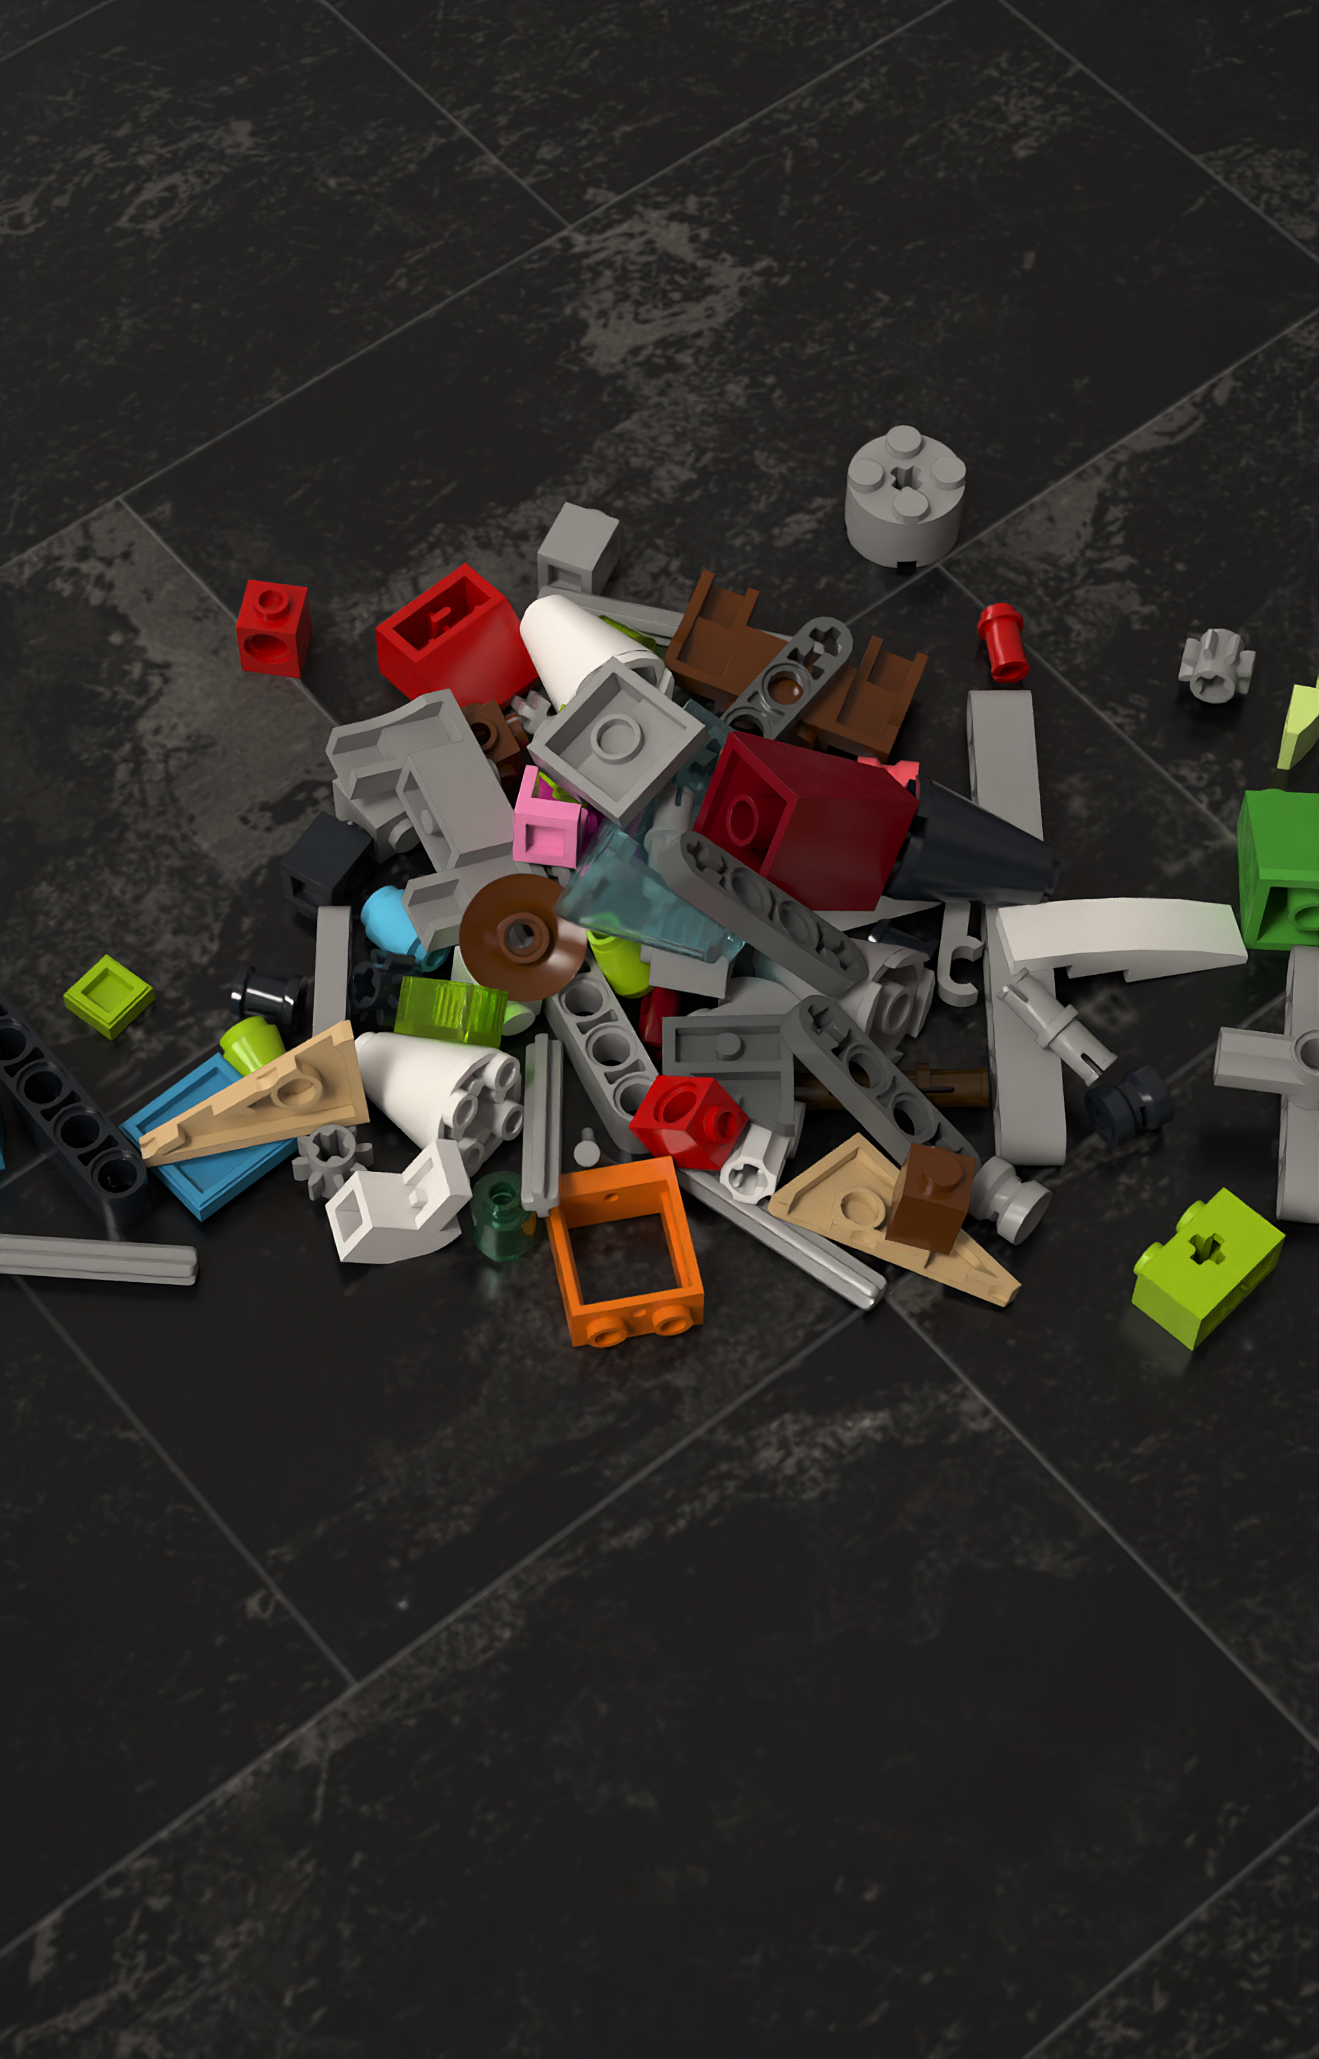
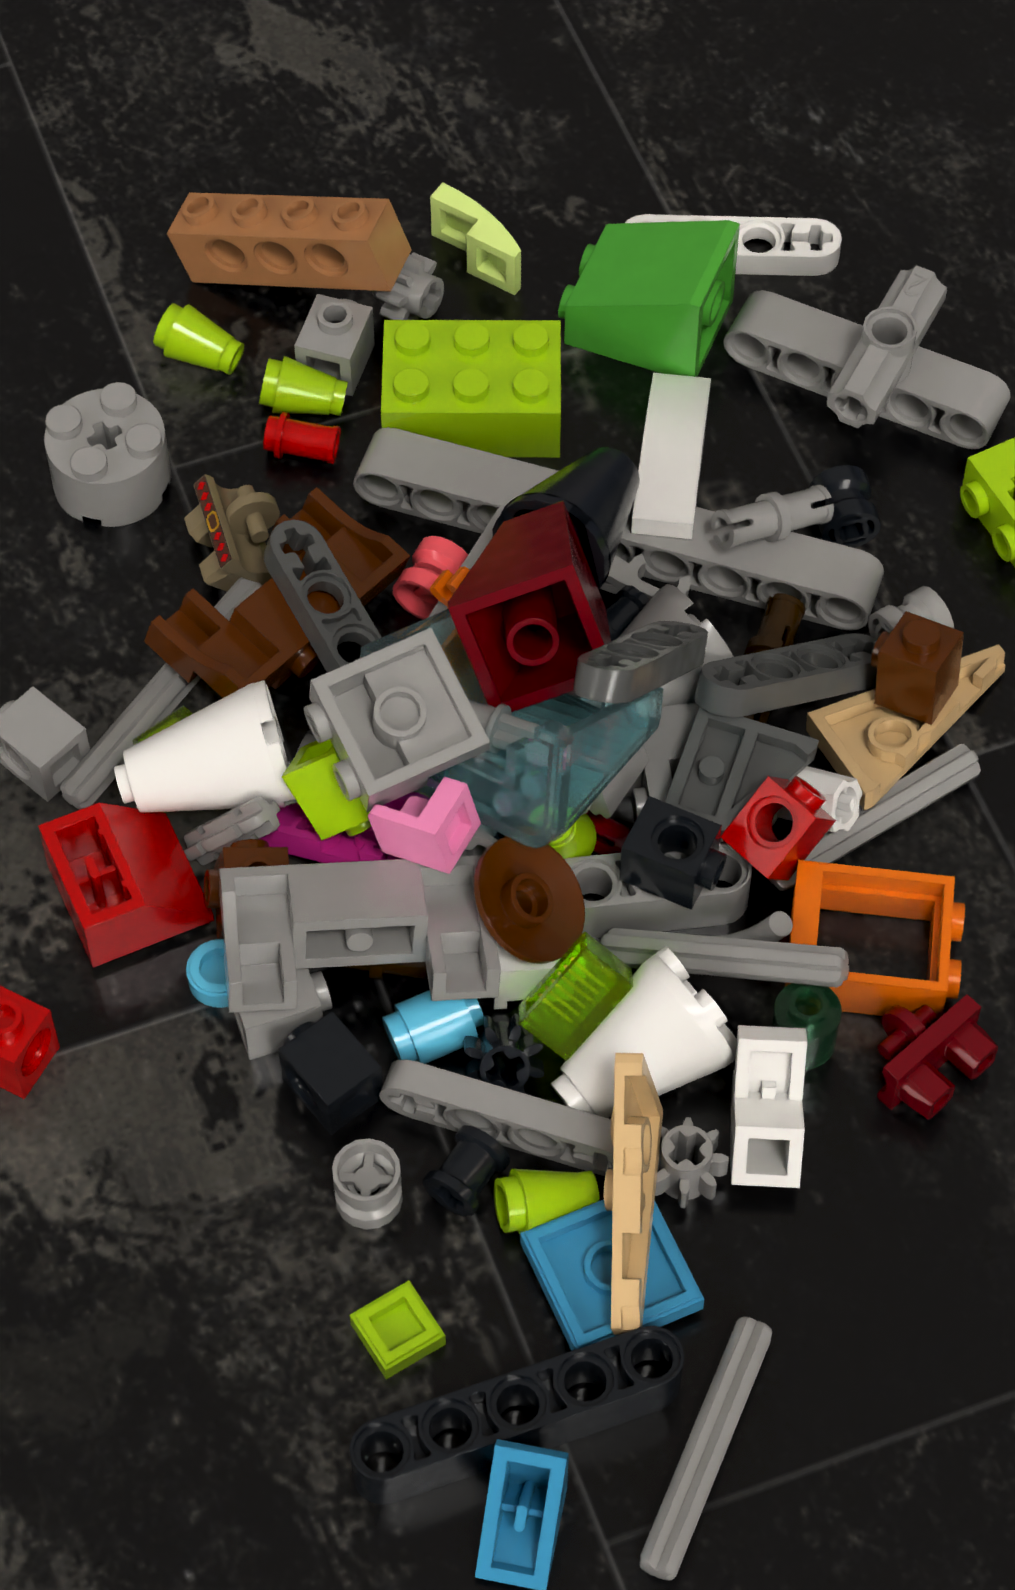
camera: 70 degrees left, 0 degrees up
(229, 926) = (365, 1168): none -> light grey wheel
(522, 1325) = (924, 1049): none -> dark red hips
(619, 1014) = (670, 829): none -> black brick
(870, 608) = (236, 528): none -> dark tan hips
(1059, 620) = (301, 389): none -> lime cone
(1078, 524) = (197, 340): none -> lime cone
(1121, 753) = (475, 383): none -> lime brick
(1124, 631) = (337, 339): none -> light grey brick
(1204, 544) = (290, 241): none -> medium nougat brick

